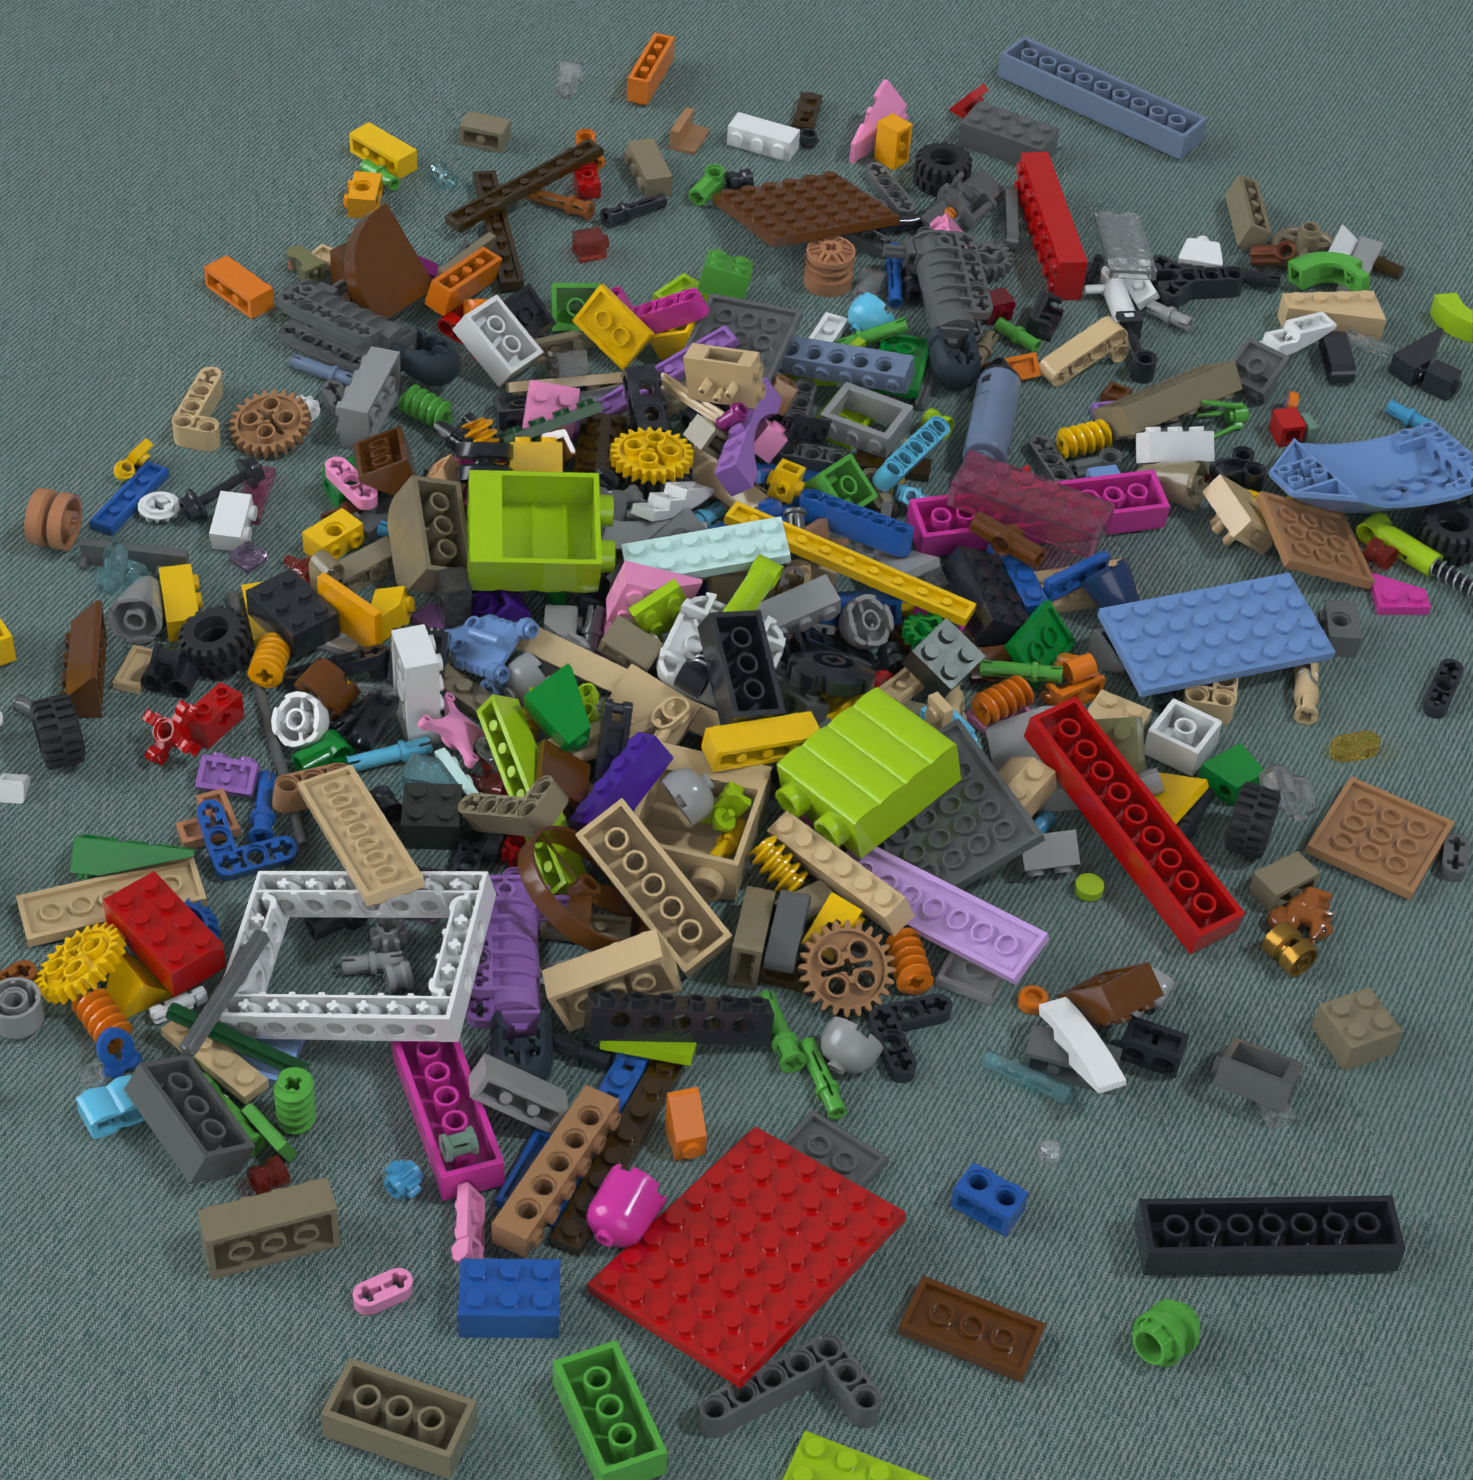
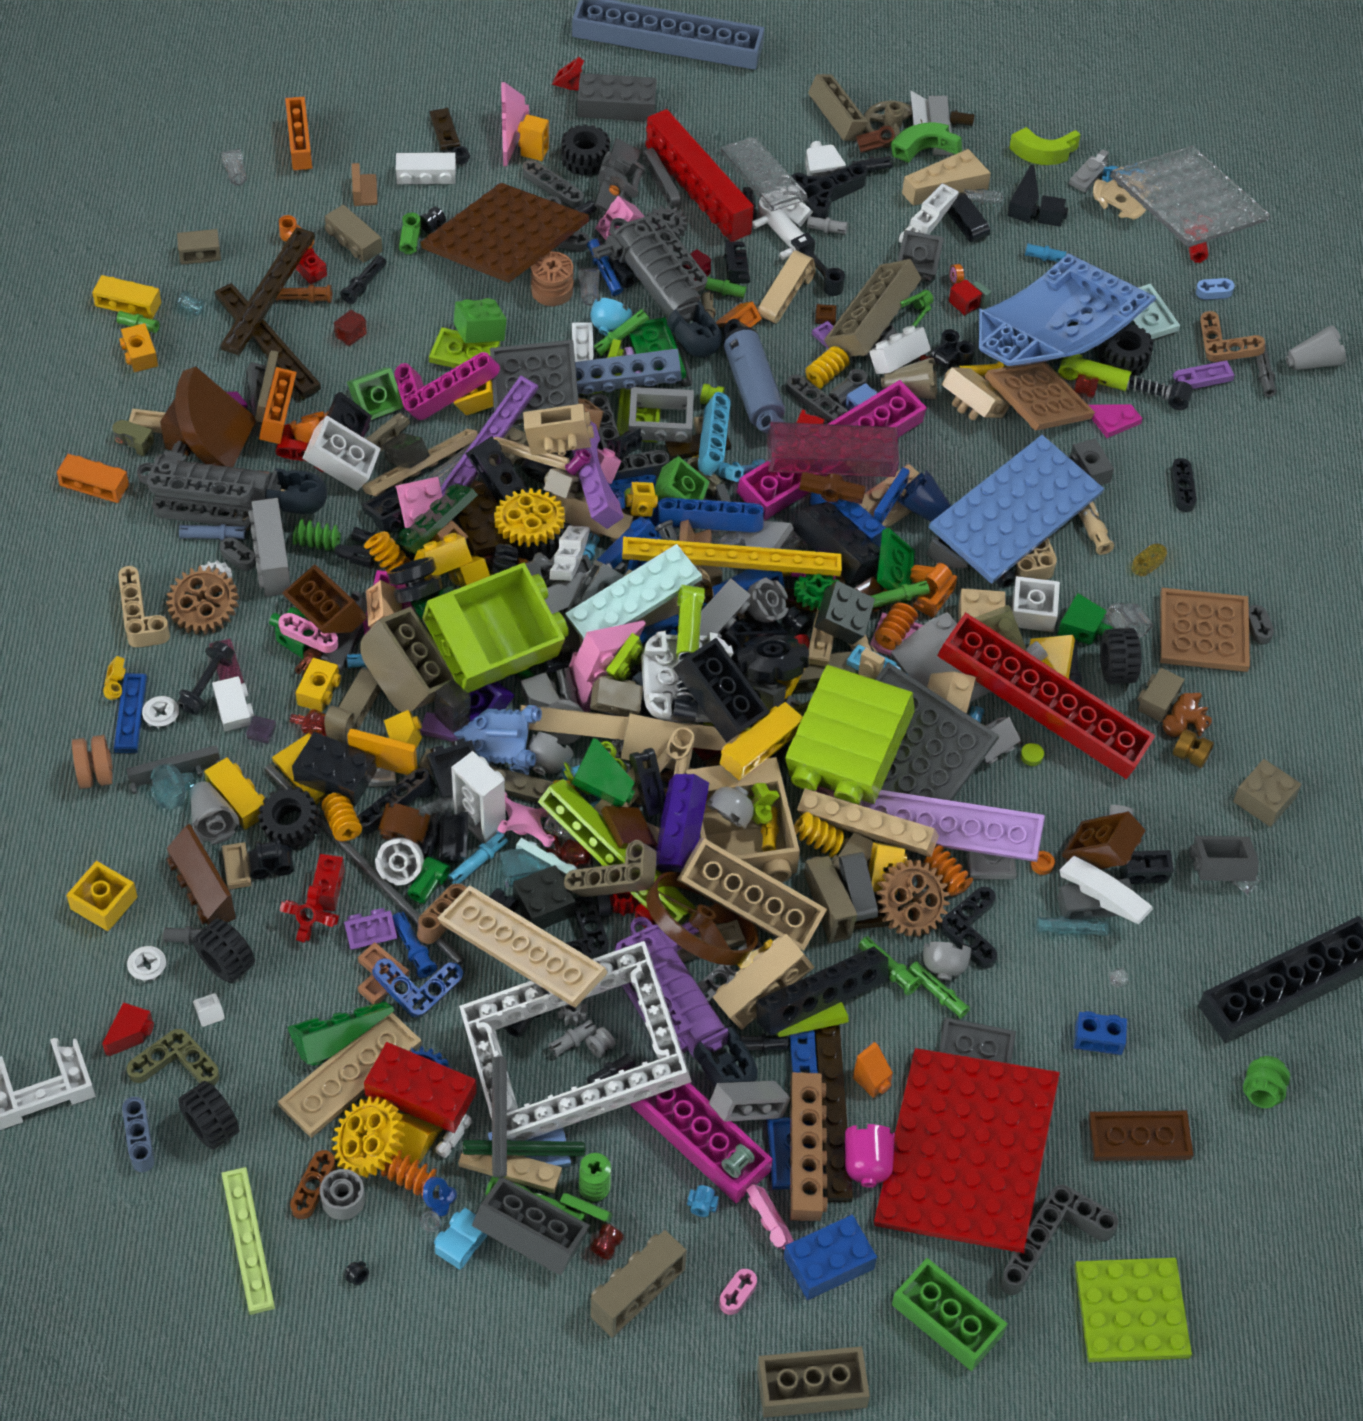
camera: 25 degrees left, 10 degrees up
(613, 327) = (424, 405): yellow tile -> none

